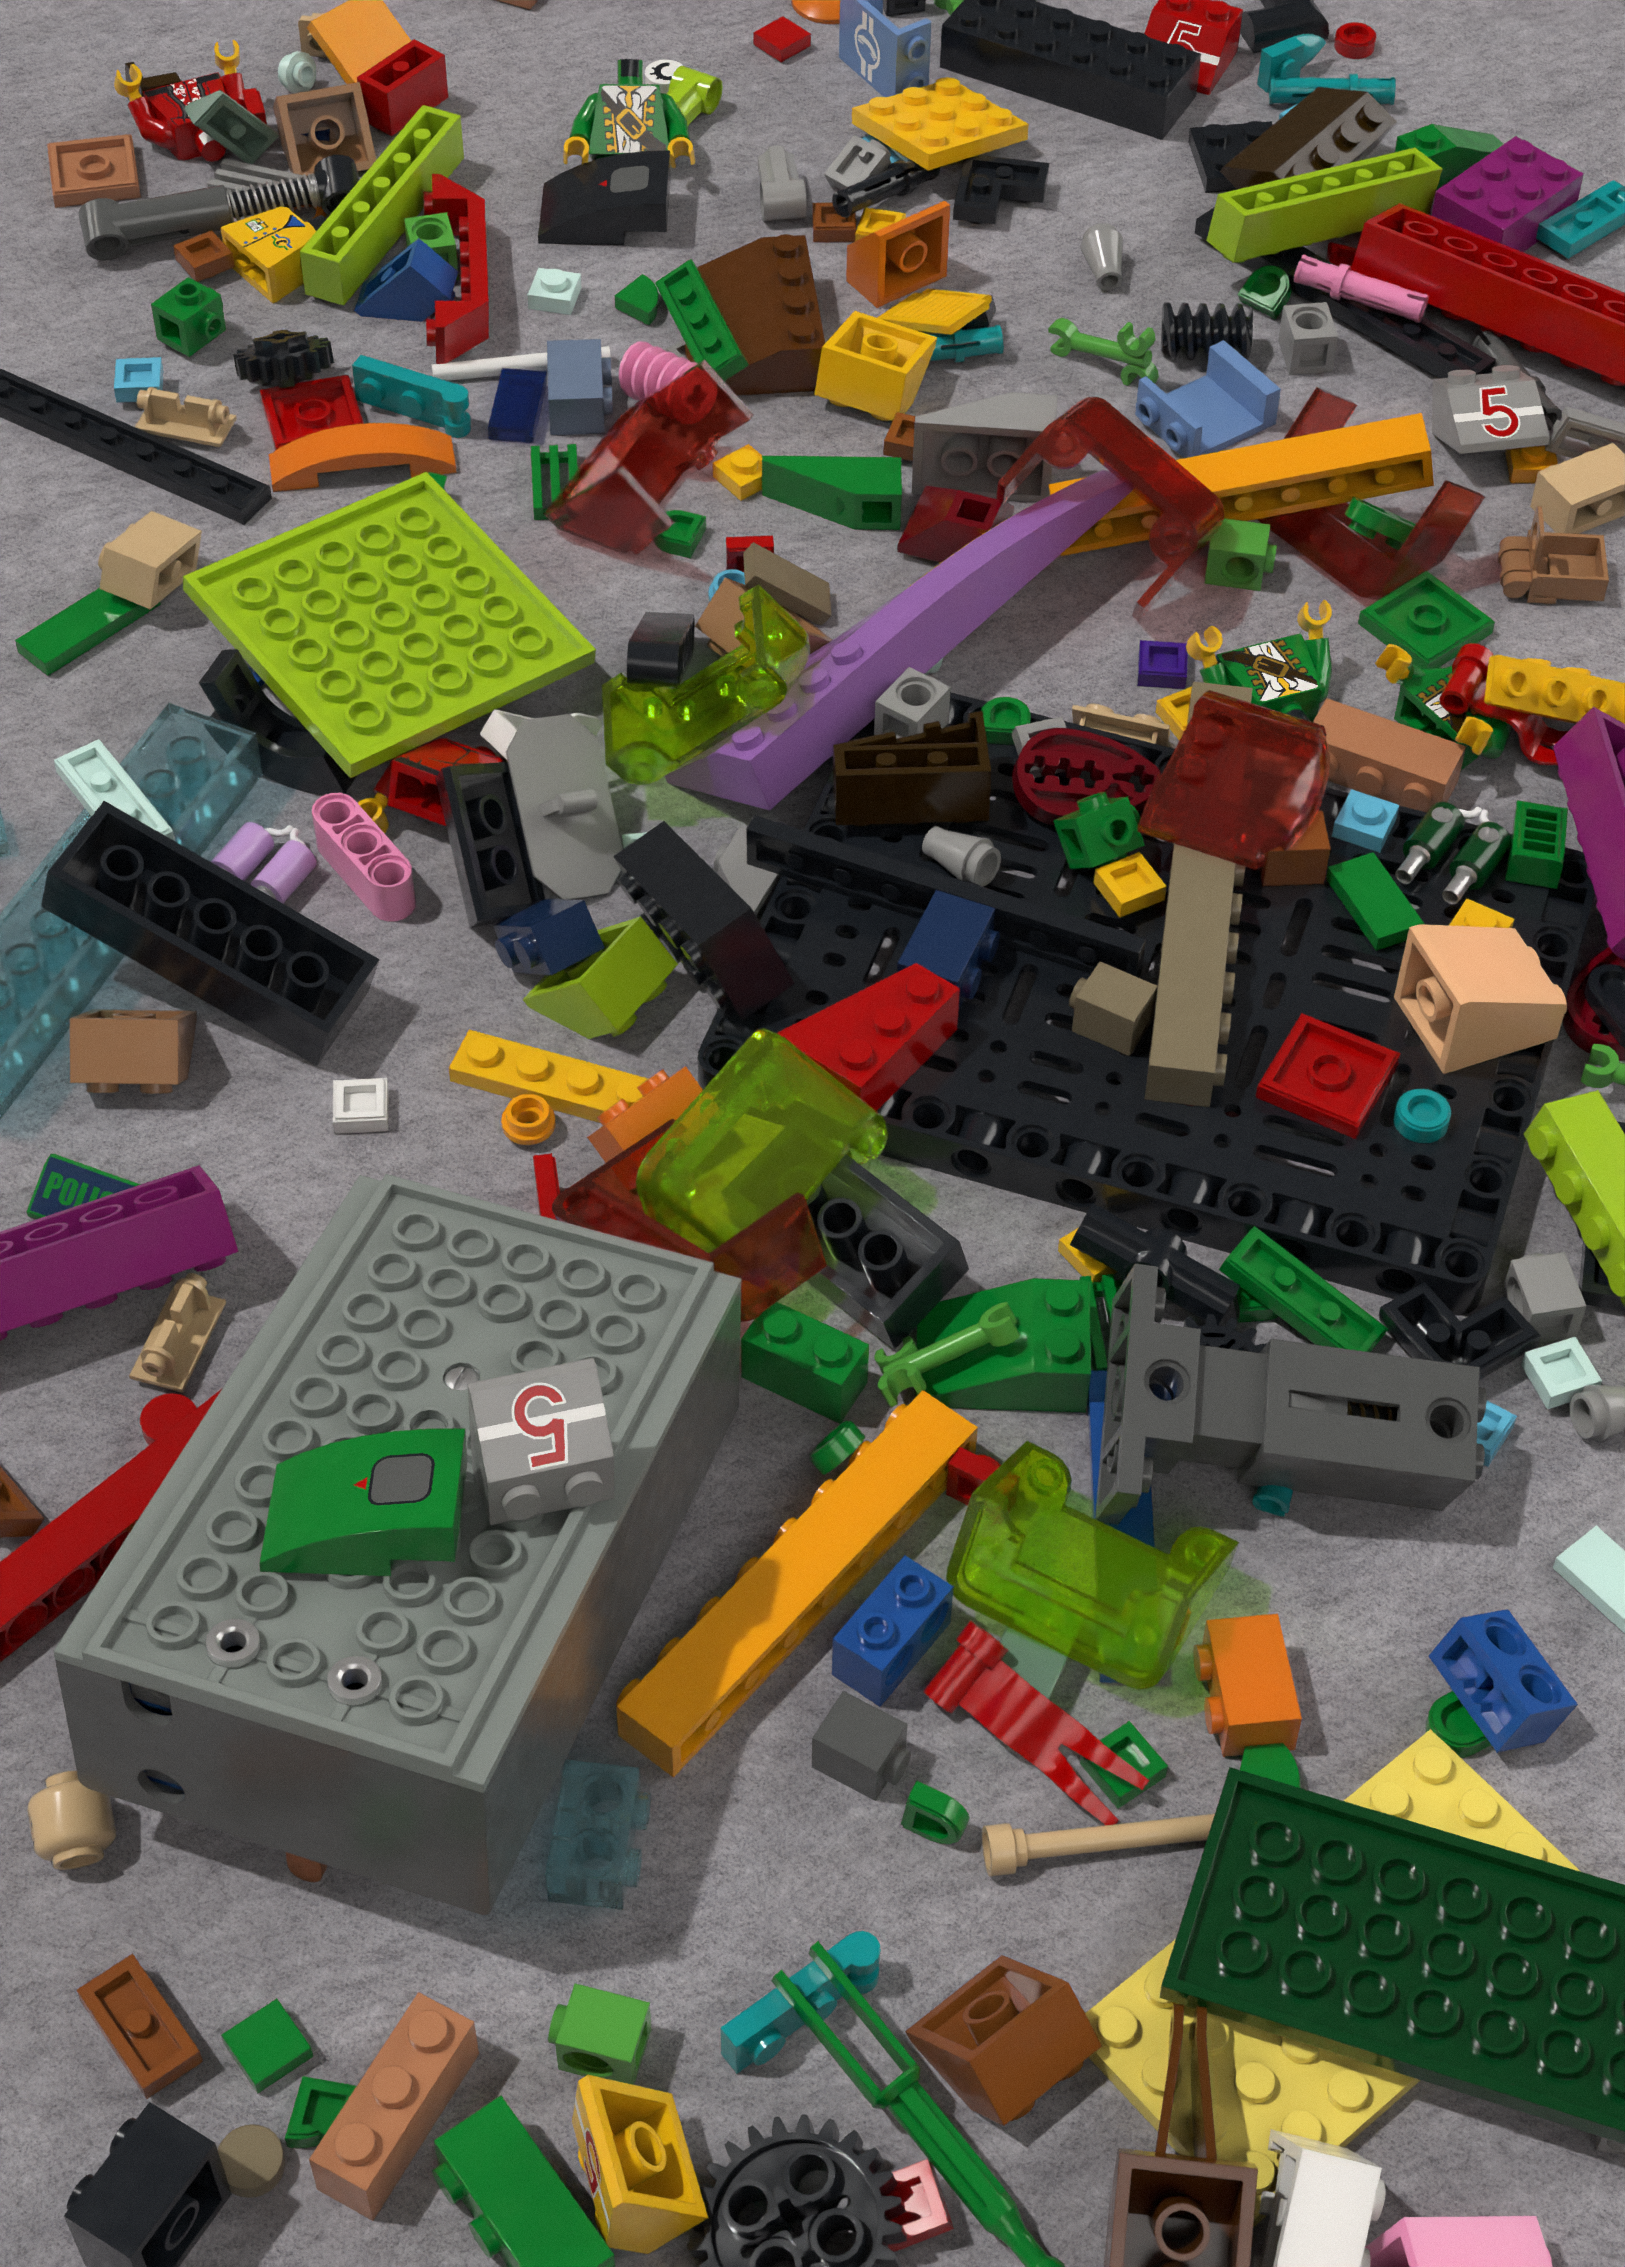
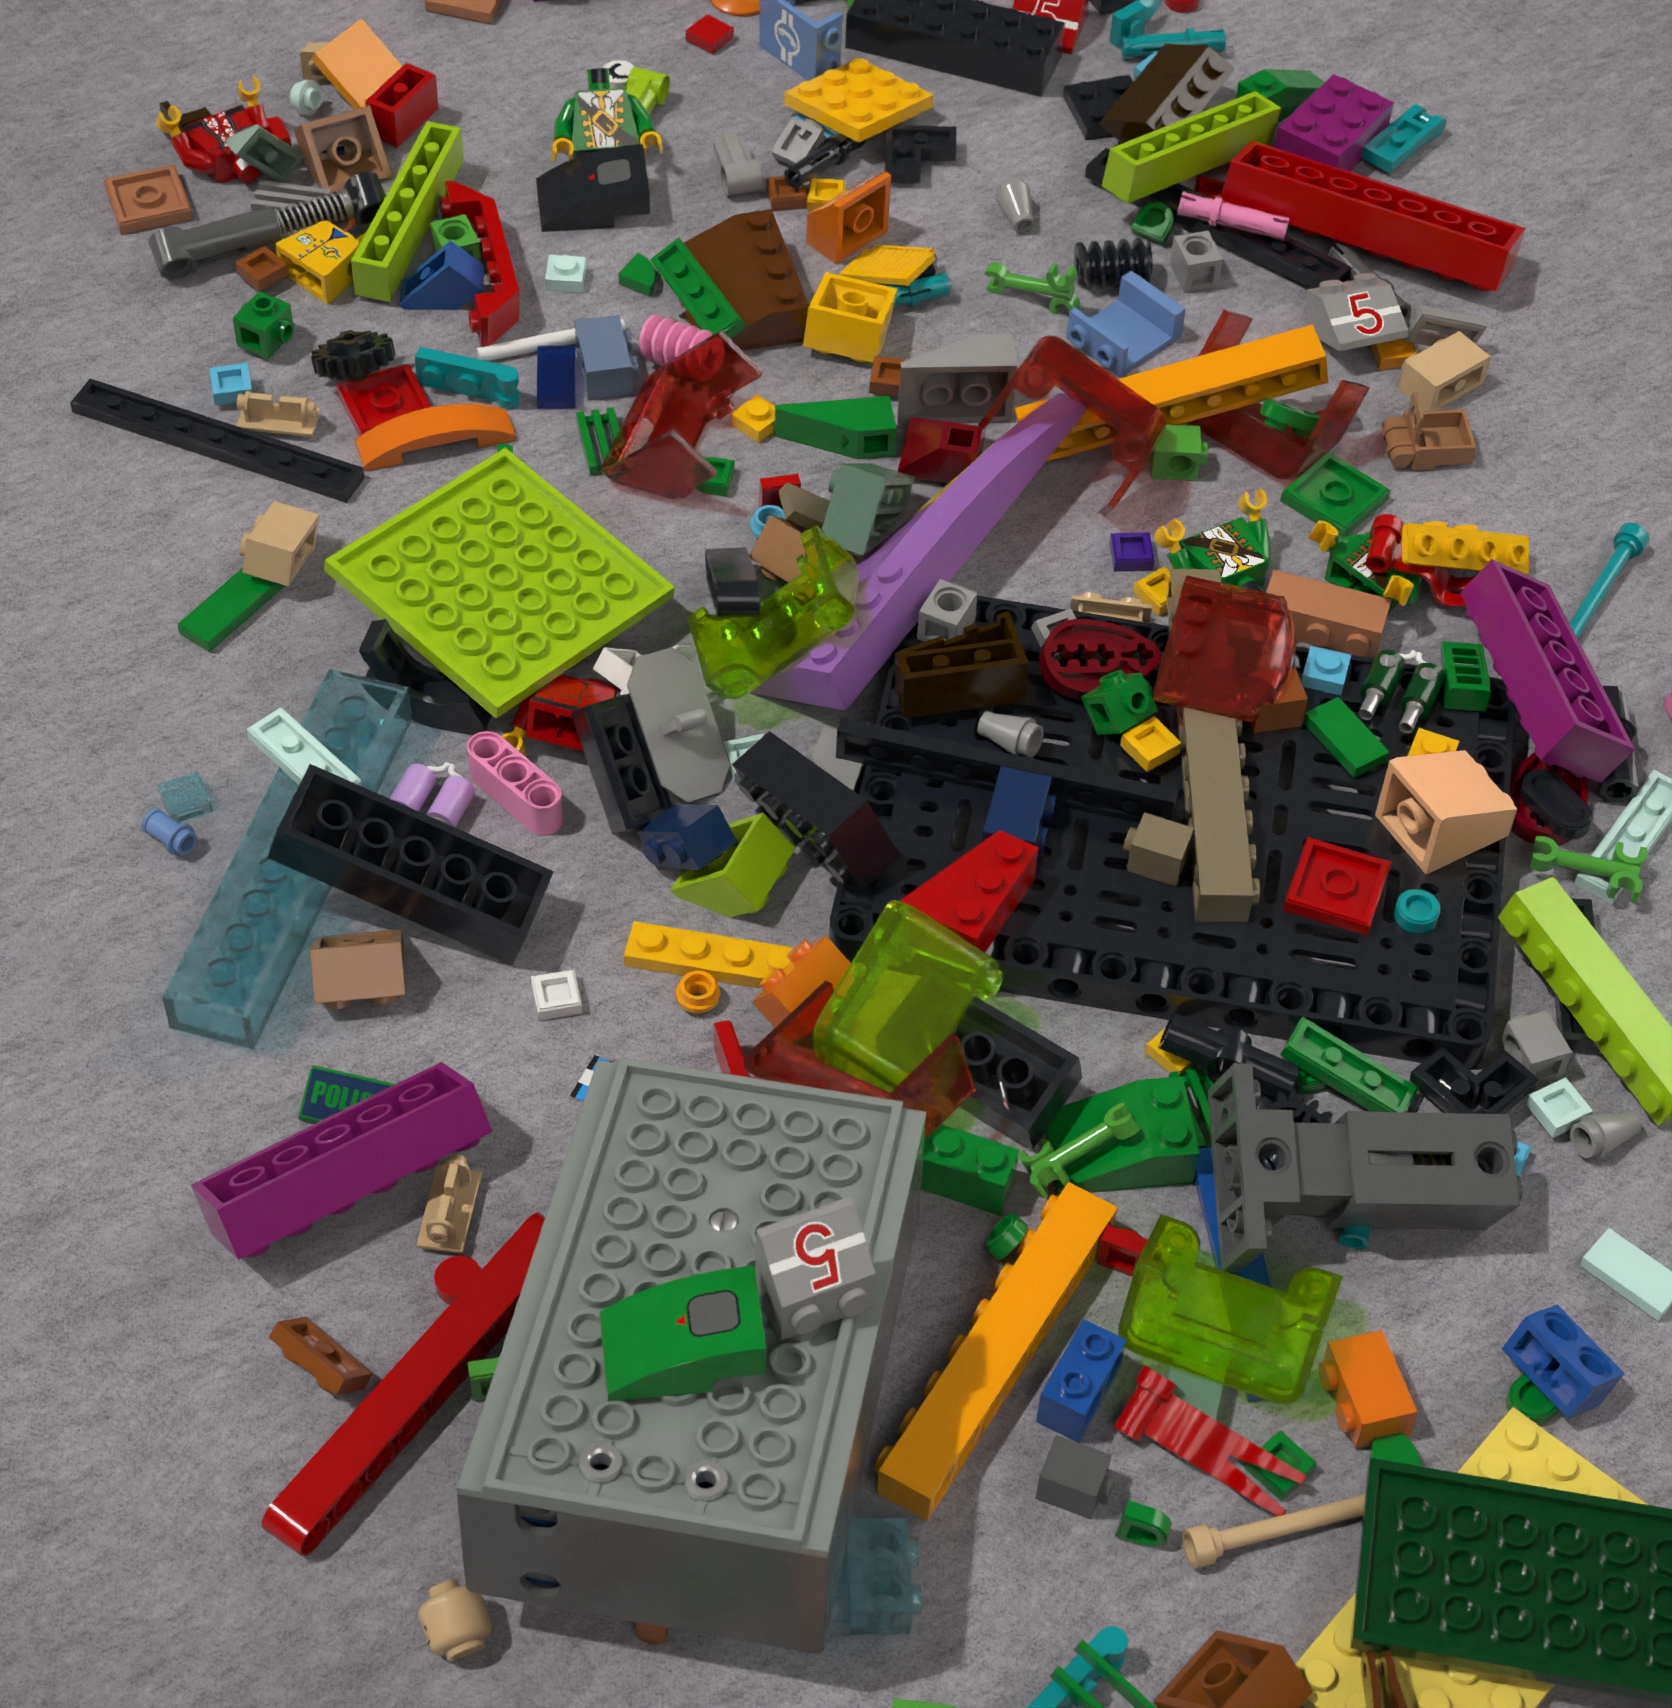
camera: 10 degrees left, 0 degrees up
(841, 574) = (863, 502): none -> sand green wedge
(1001, 717) = (1023, 612): green tile -> none

